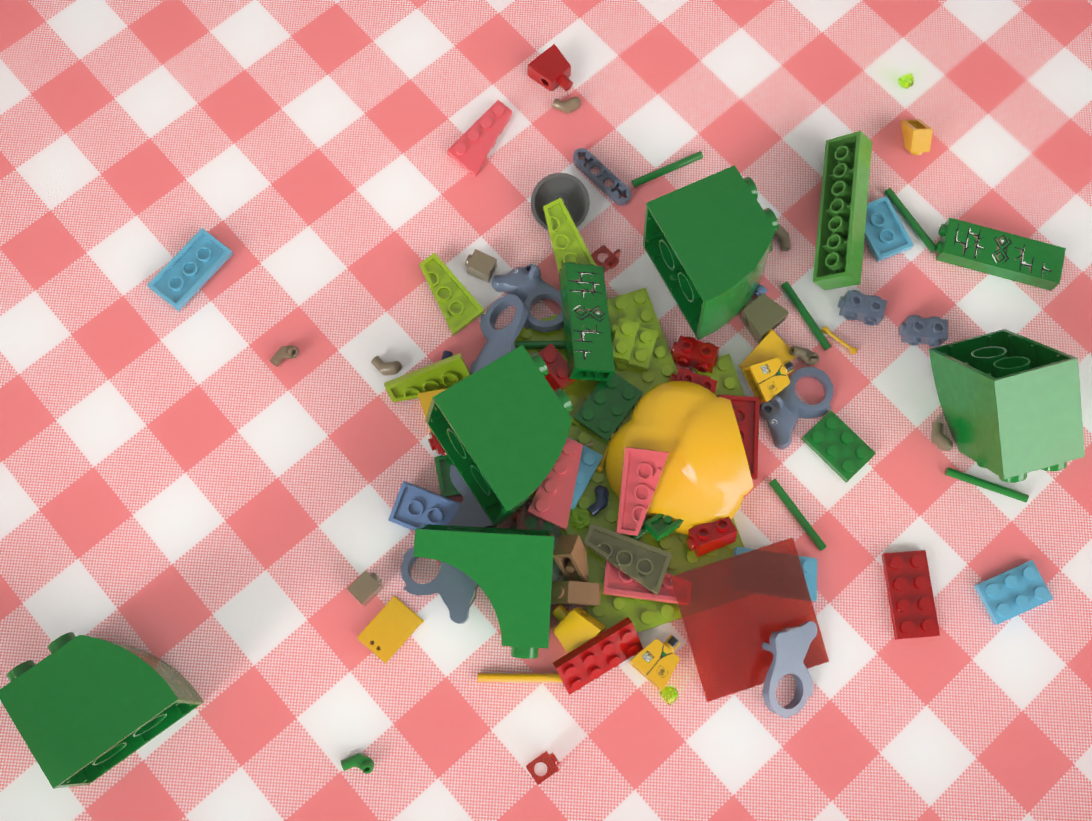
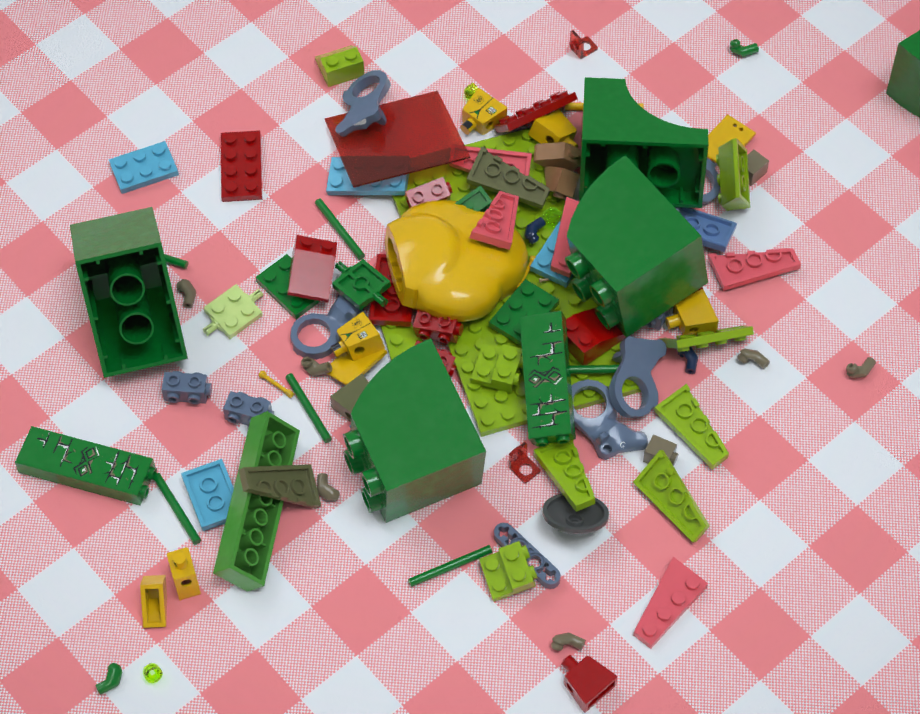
camera: 175 degrees left, 15 degrees down
(384, 465) = (741, 269): none -> coral wing
(387, 561) = (733, 176): none -> lime slope
(474, 223) = (668, 492): none -> lime wing
(617, 156) = (508, 571): none -> lime plate
(771, 433) = (361, 284): none -> green plate
(818, 222) = (284, 483): none -> olive wing
(822, 450) = (312, 268): none -> slope
(822, 736) = (340, 65): none -> lime slope
(891, 416) = (233, 311): none -> yellowish green plate
(896, 155) = (183, 569): none -> yellow torso
(937, 76) = (112, 679): none -> green arm

